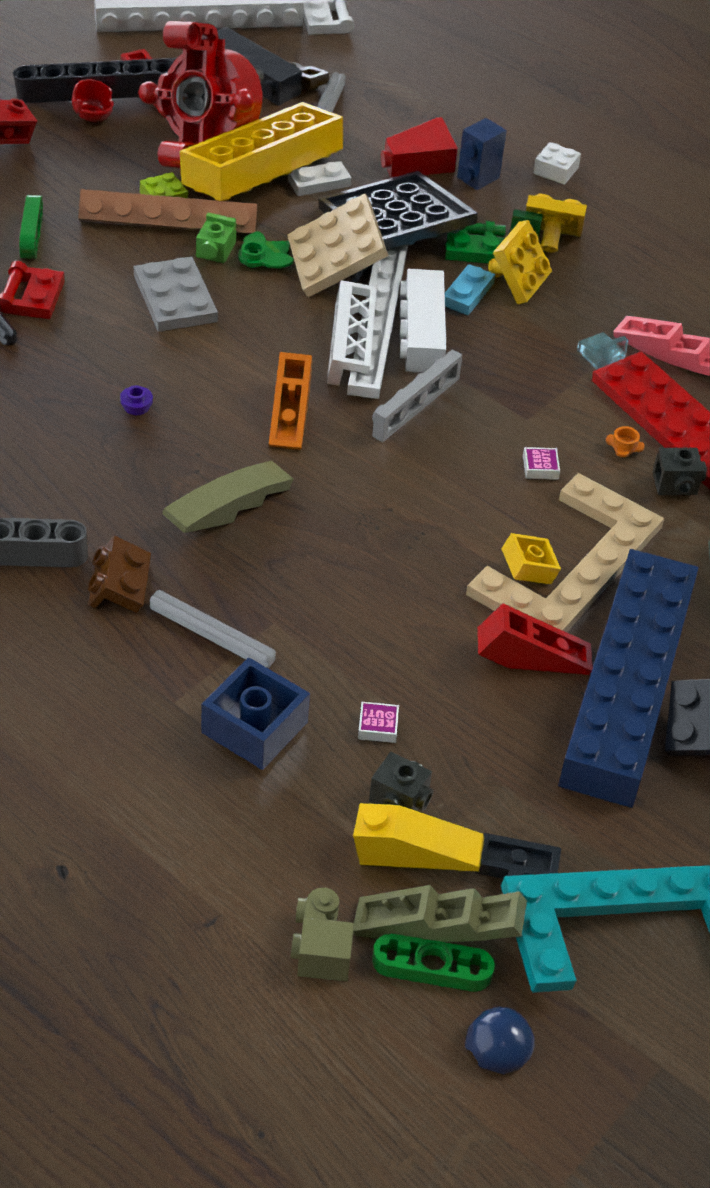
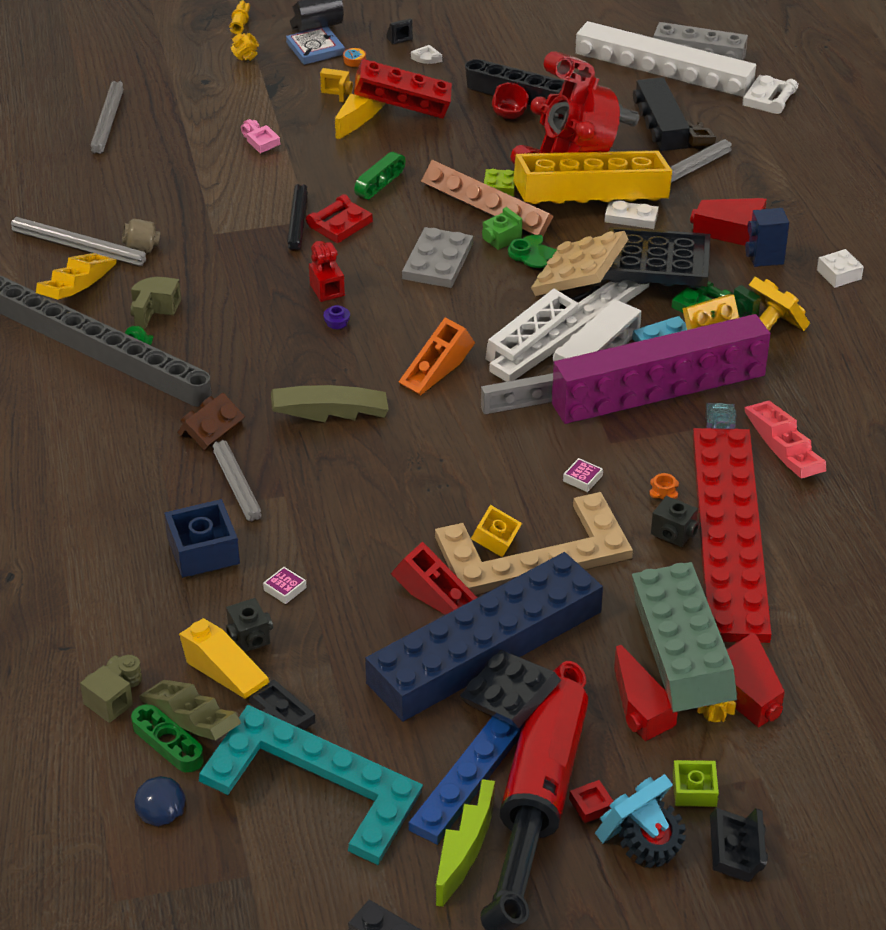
camera: 40 degrees right, 5 degrees down
(84, 357) = (324, 272): none -> red brick
(517, 325) = (659, 368): none -> magenta brick

